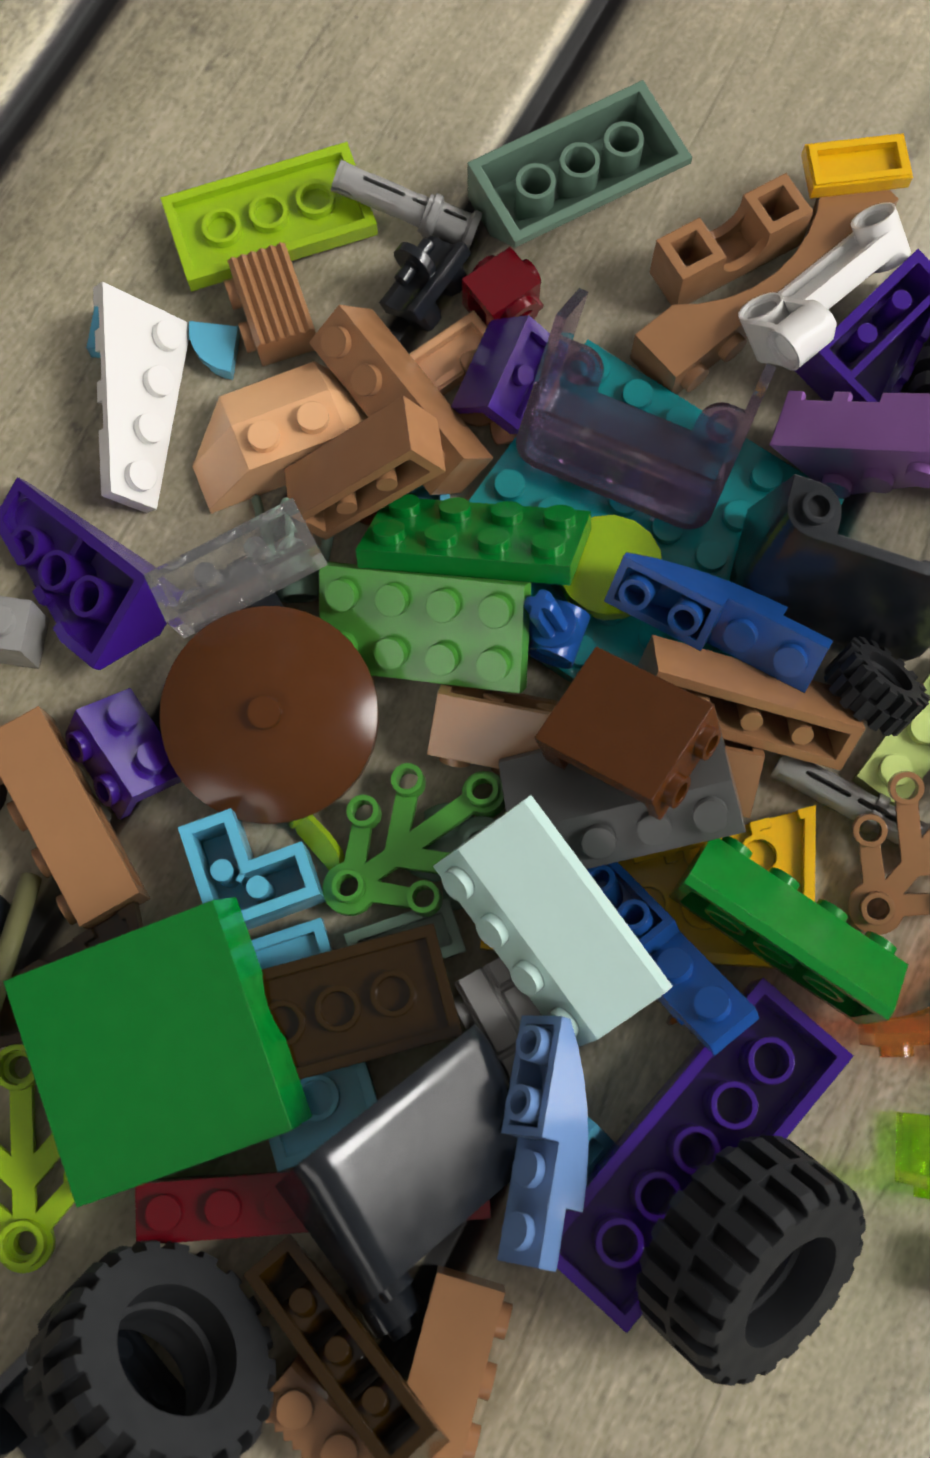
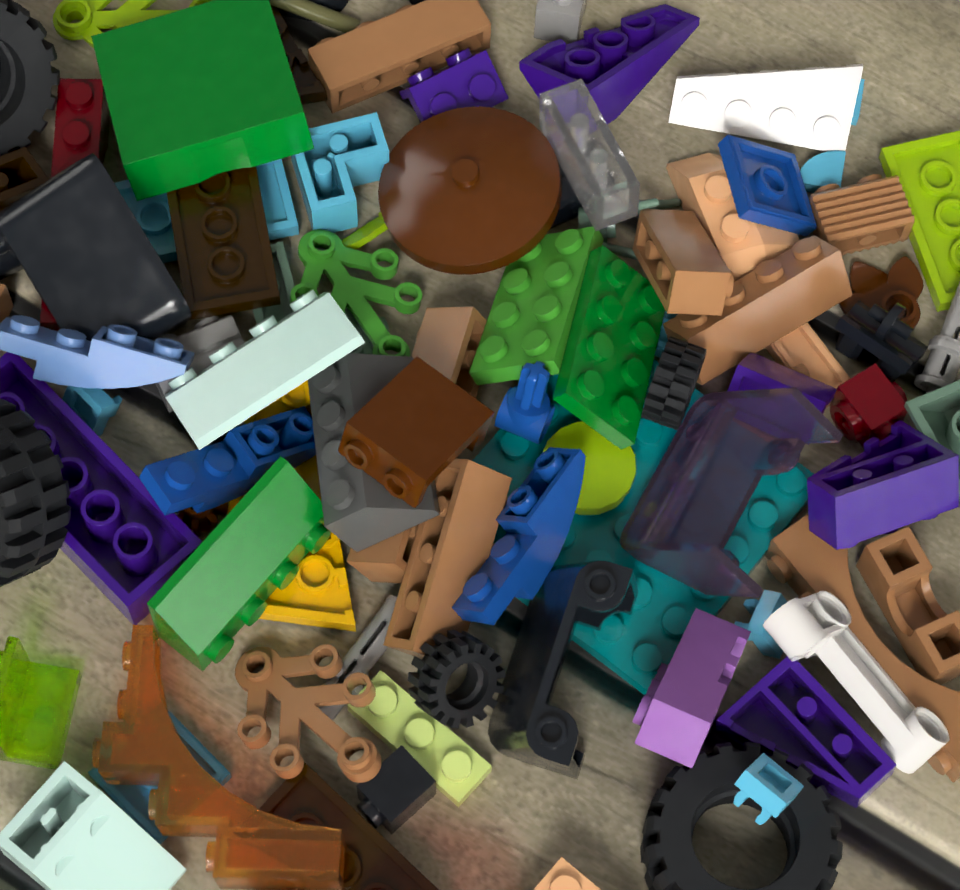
camera: 90 degrees right, 10 degrees down
(249, 390) = (767, 185): none -> blue tile
(356, 278) = (874, 286): none -> reddish brown plate
(516, 469) = (673, 383): none -> black tyre
(618, 259) = (882, 488): none -> dark purple wedge
(746, 381) = (760, 611): none -> medium azure tile

